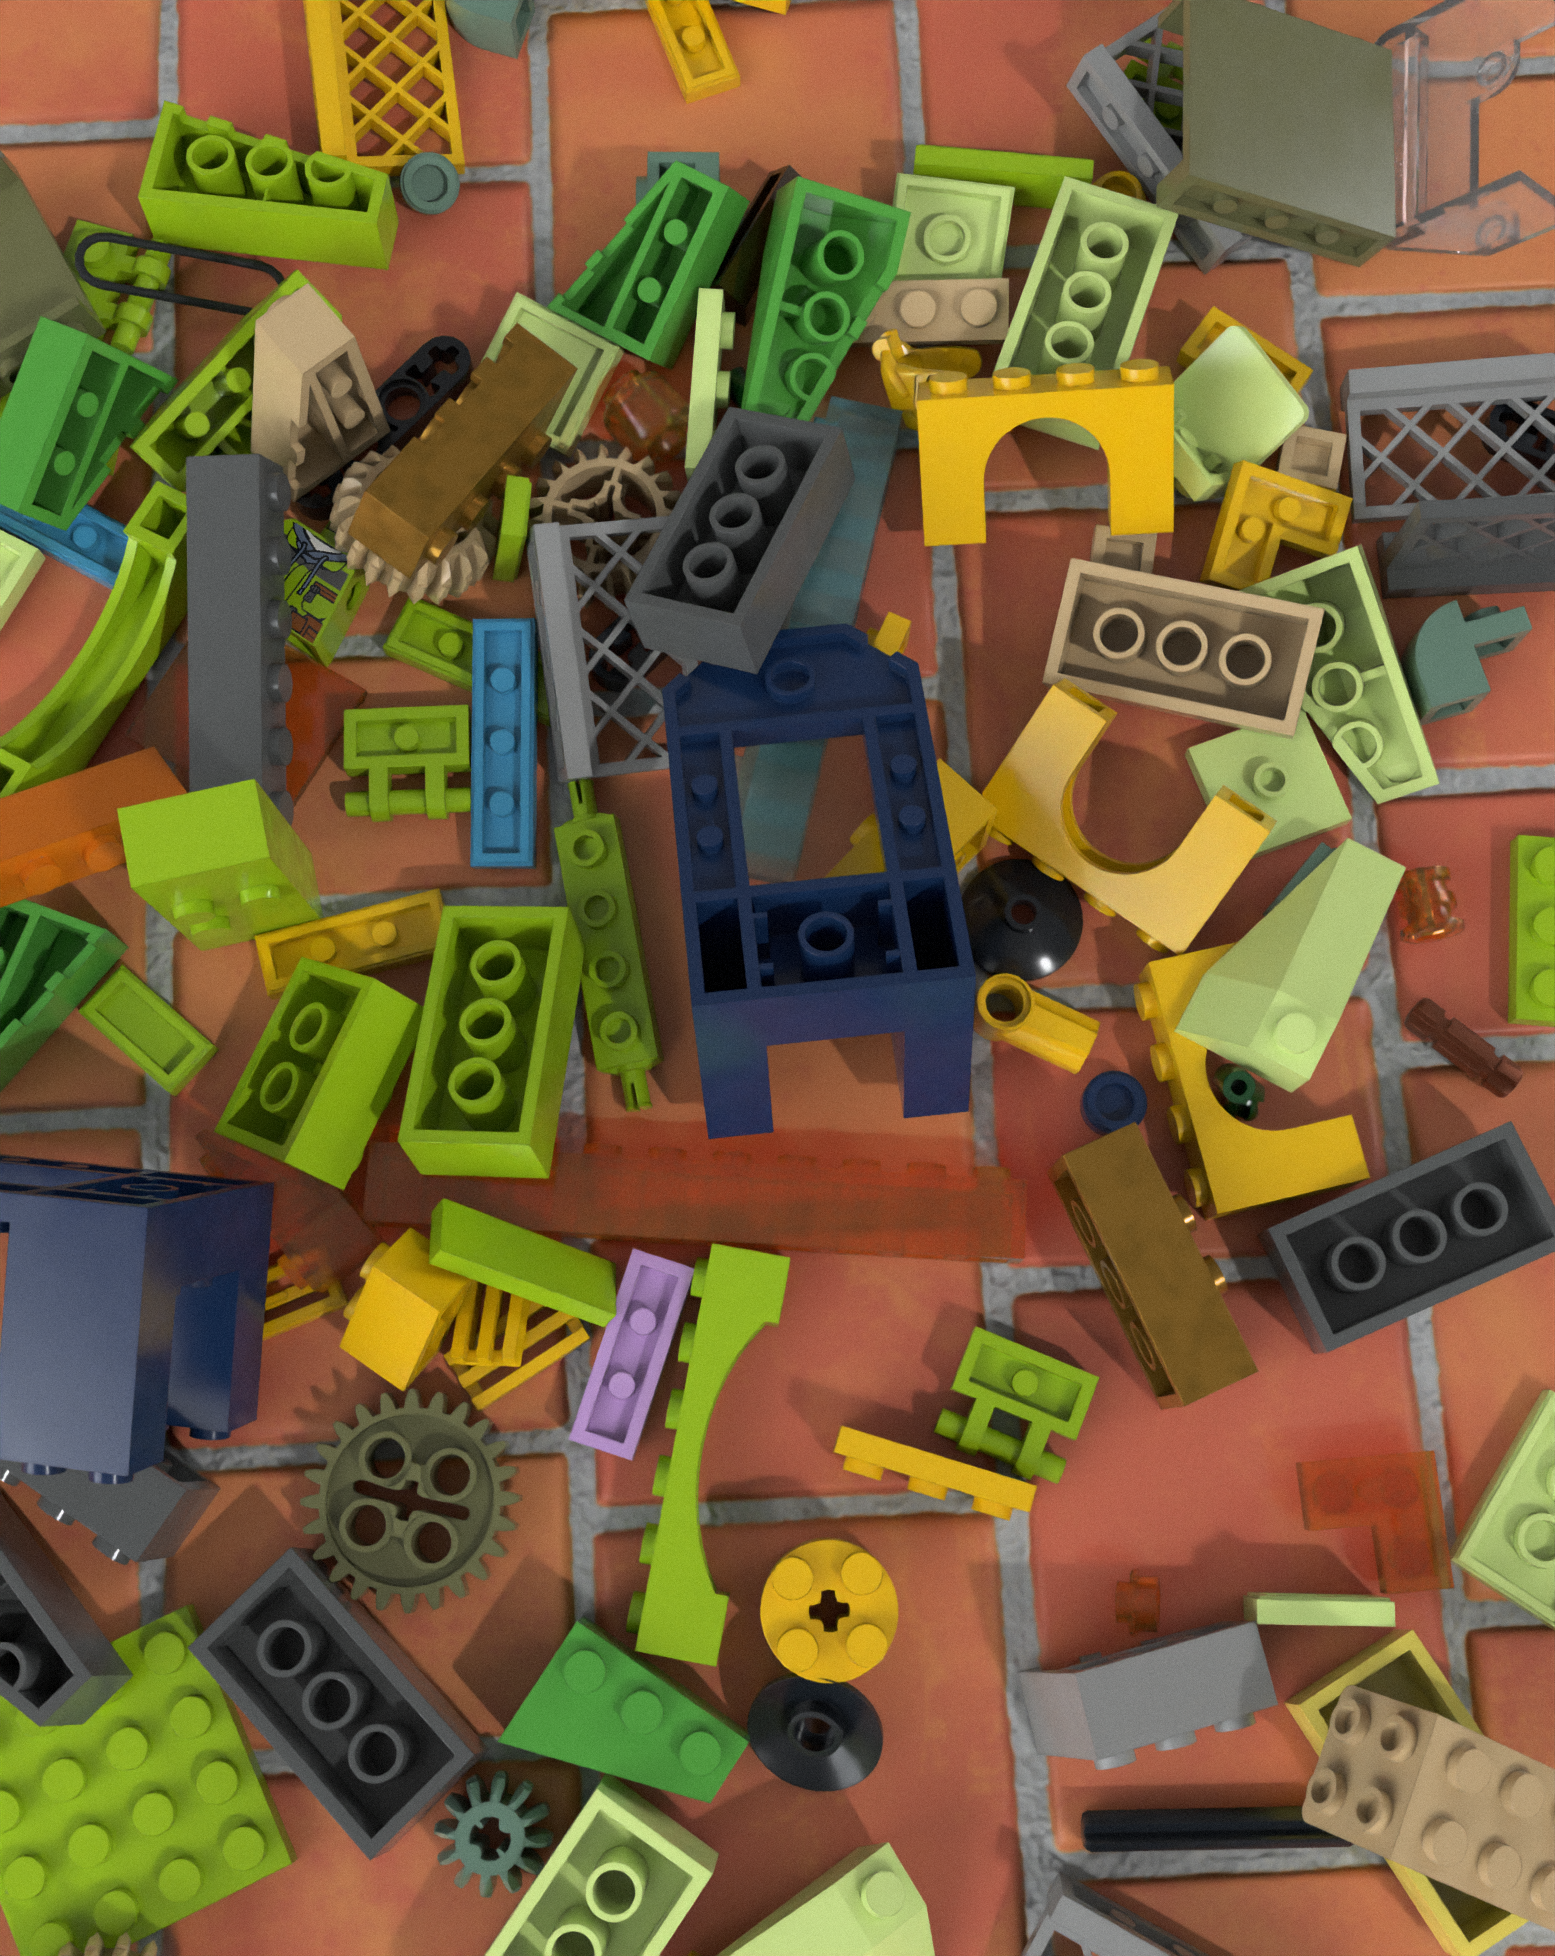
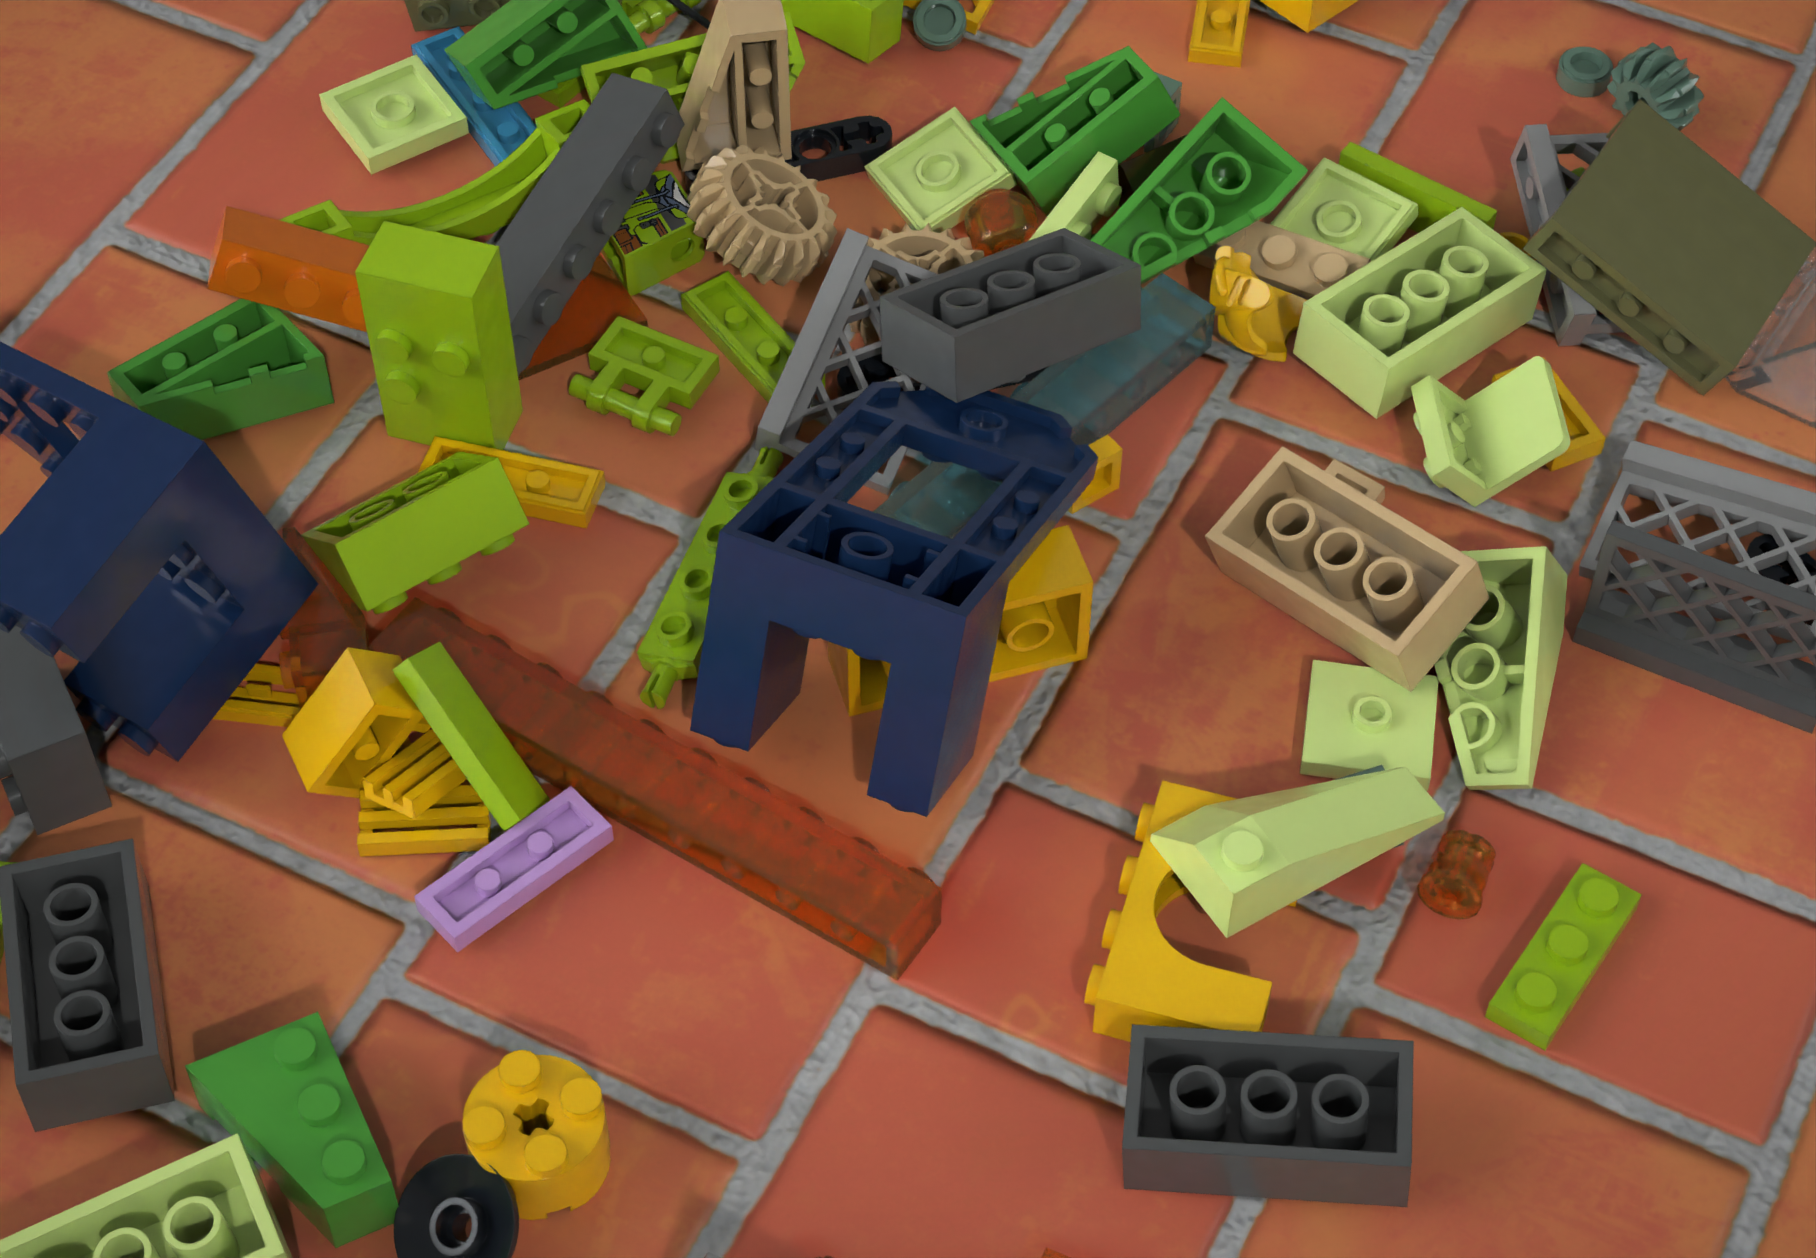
camera: 30 degrees right, 25 degrees down
(148, 1030) = (305, 464): lime tile -> none
(396, 1560) = (298, 842): olive gear -> none
(464, 455) = (829, 170): pearl gold wedge -> none
(474, 1847) = (124, 1147): sand green gear -> none
(493, 1042) = (562, 567): lime brick -> none
(504, 744) = (725, 399): dark azure tile -> none
(512, 528) = (847, 214): lime tile -> none
(682, 1608) = (416, 1067): lime arch -> none
(932, 1473) = (706, 1083): yellow plate -> none
(1015, 948) = (1076, 743): black dish -> none
(1023, 1385) = (832, 1059): lime plate -> none
(1039, 1023) = (1034, 791): yellow piece -> none
(1112, 1102) = (1067, 896): dark blue tile -> none
(1122, 408) = (1394, 366): yellow arch -> none
(1152, 1268) = (1005, 1009): pearl gold brick -> none
(1161, 897) = (1144, 625): yellow arch -> none
(1240, 1089) = (1186, 920): dark green arm -> none
(1266, 511) = (1500, 514): yellow plate -> none
(1313, 456) = (1562, 504): tan plate -> none
(1446, 656) = (1599, 691): sand green brick -> none
(1463, 1047) = (1424, 1006): copper axle -> none

